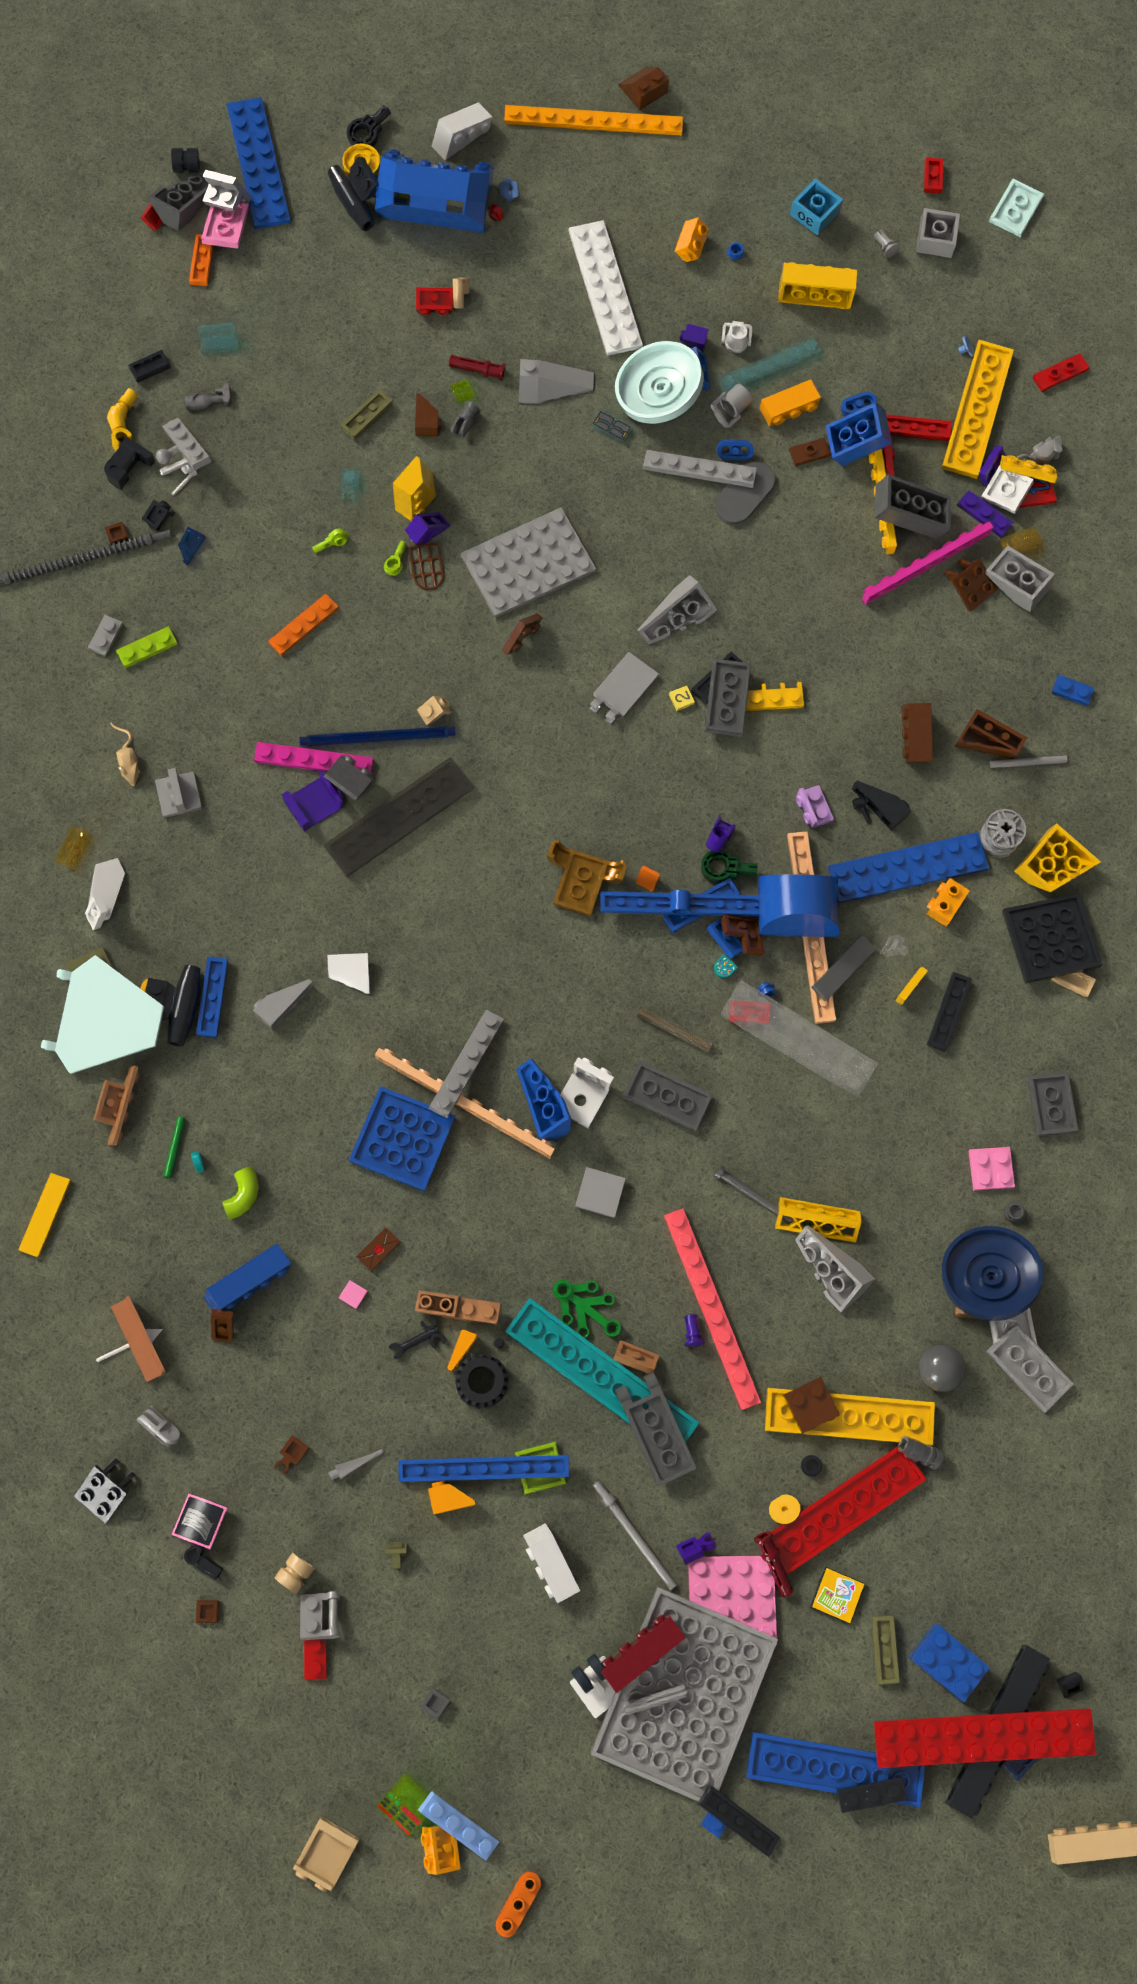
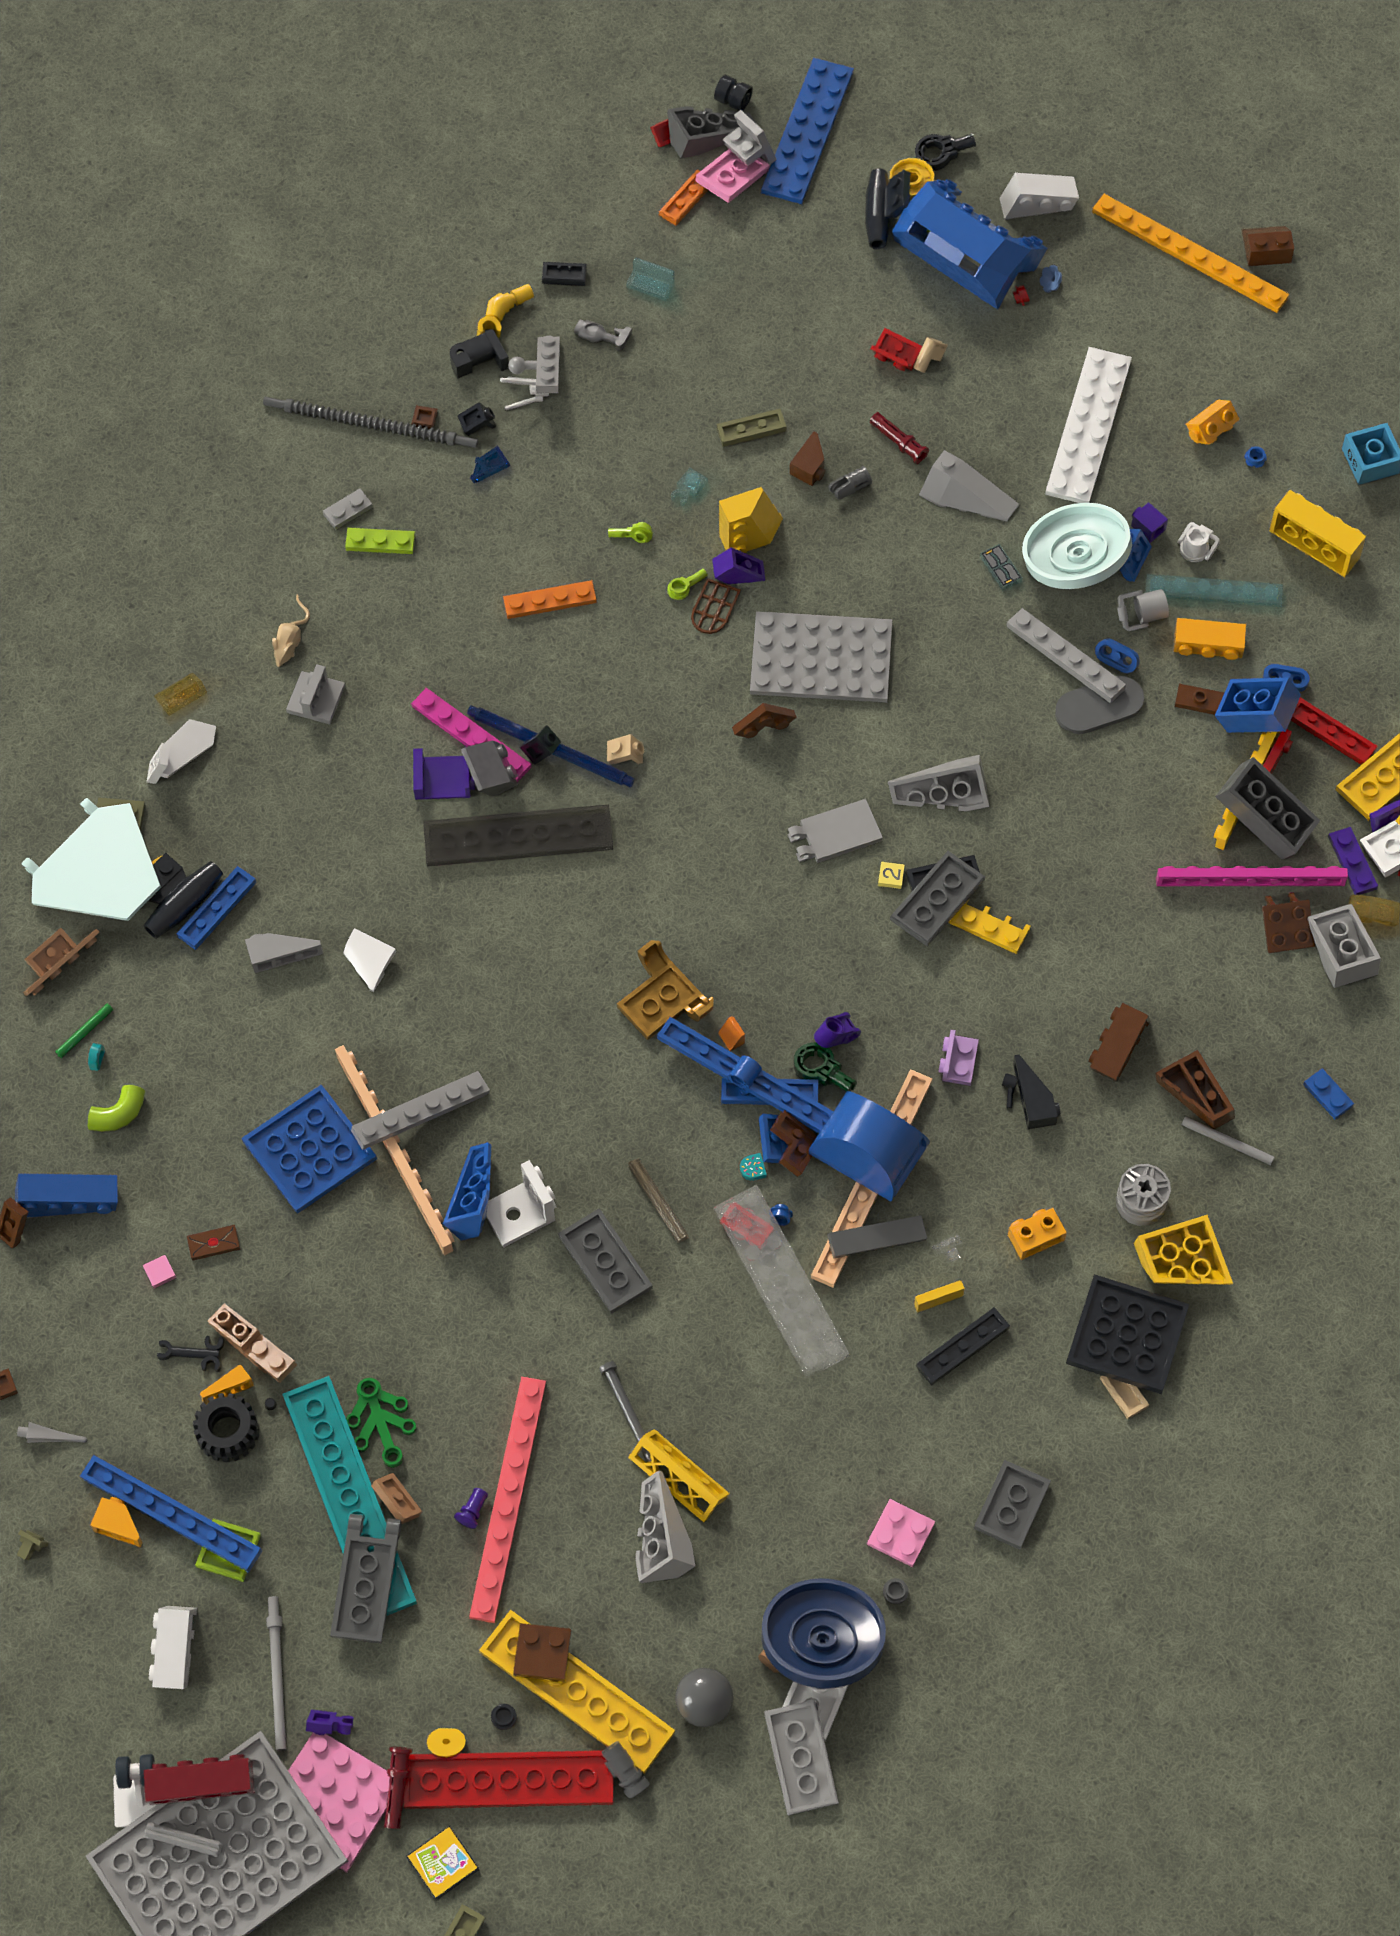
camera: 40 degrees right, 10 degrees down
(373, 740) = (541, 745): none -> black bracket
(462, 390) = (867, 453): clear neon green tile -> none
(600, 1192) = (471, 1315): light grey tile -> none
(909, 867) = (1020, 1176): blue plate -> none

